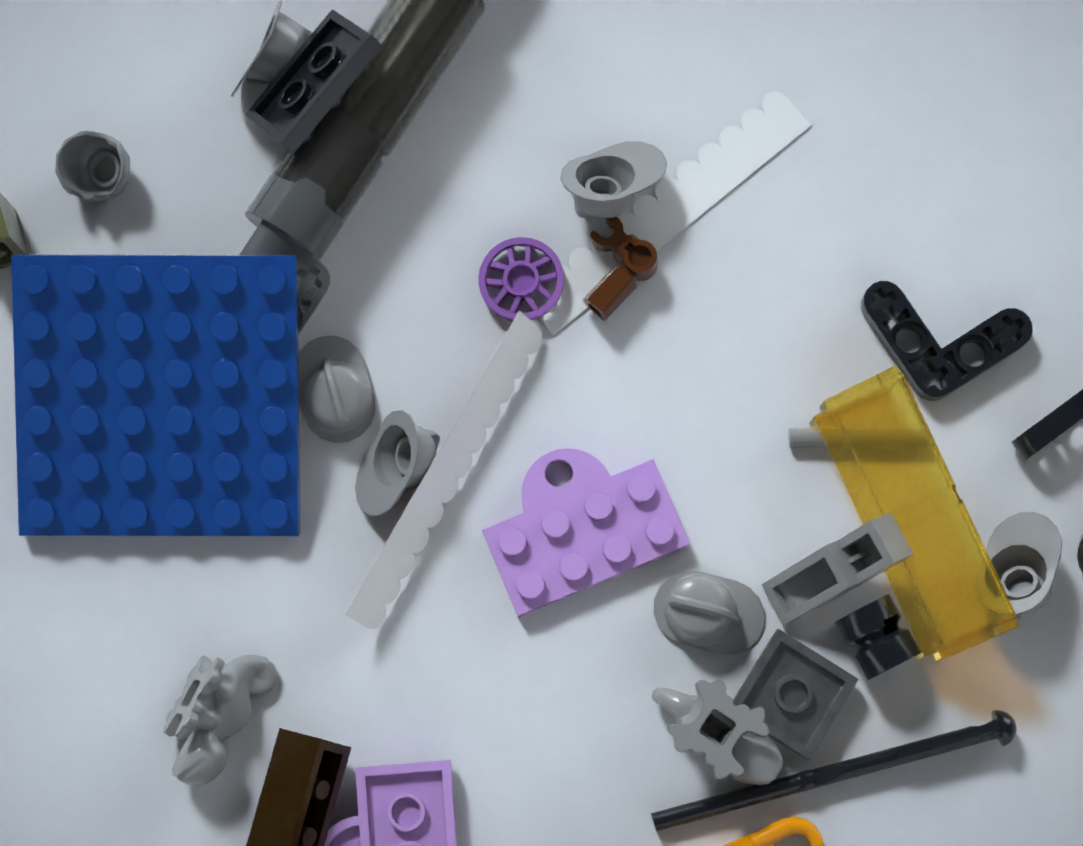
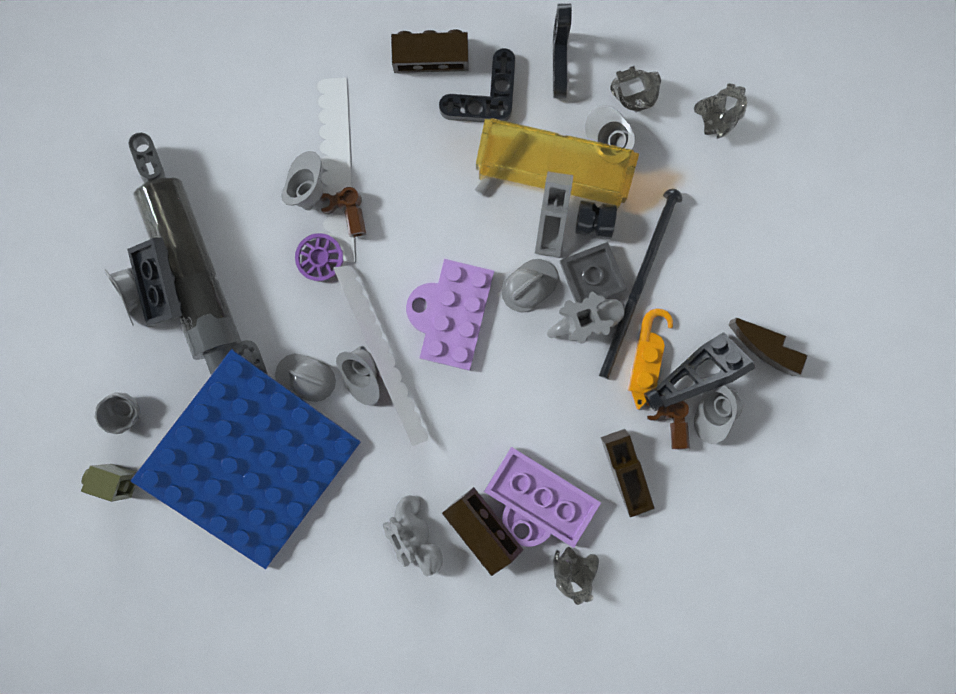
camera: 50 degrees left, 5 degrees up
(939, 215) = (429, 51): none -> dark brown brick

